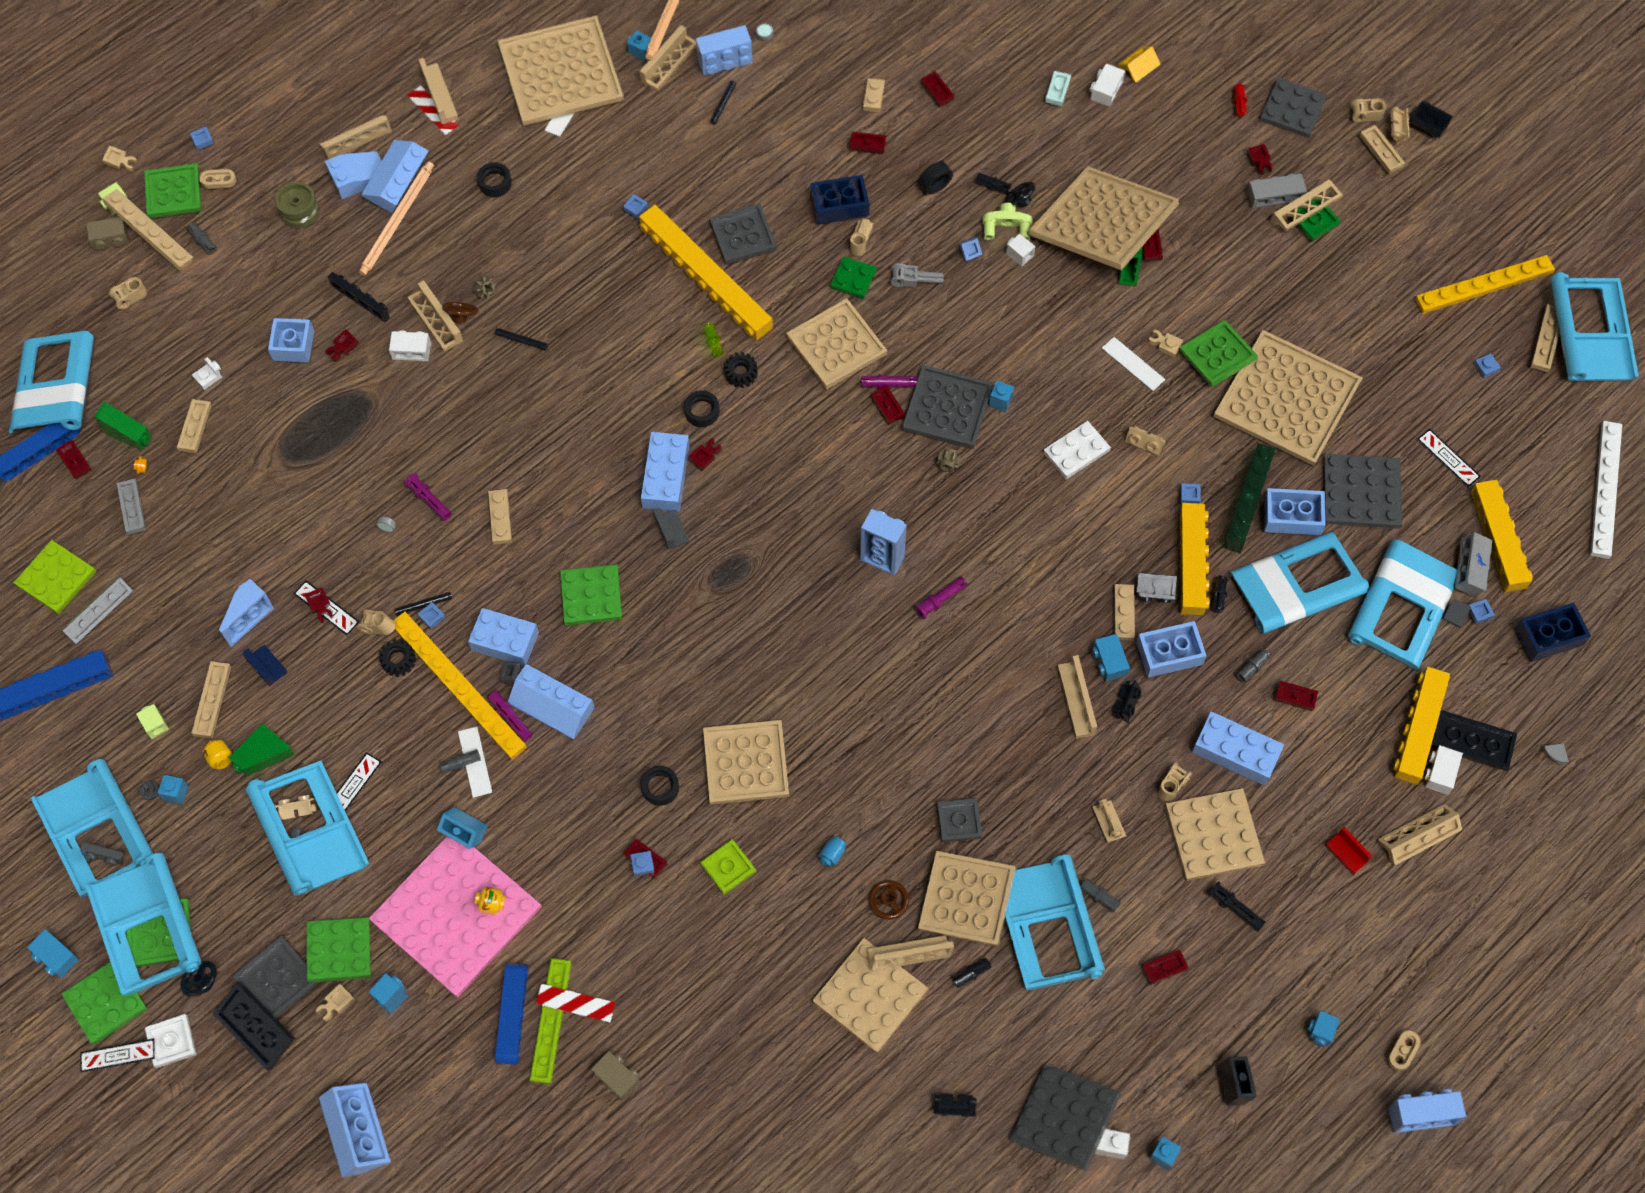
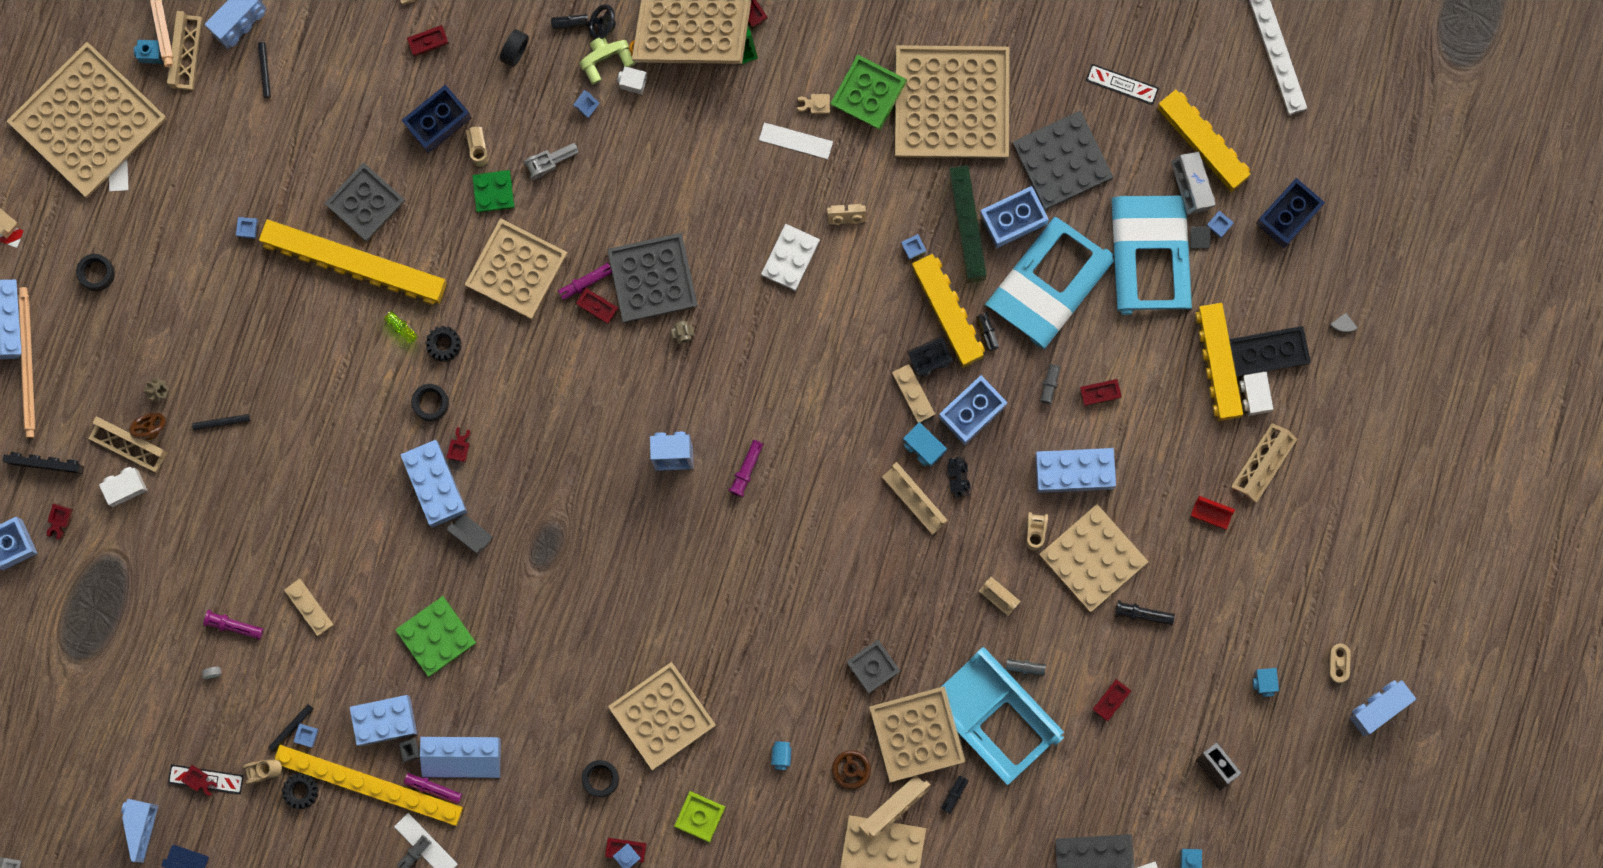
camera: 25 degrees left, 15 degrees up
(1001, 396) = (695, 242): dark azure brick -> none

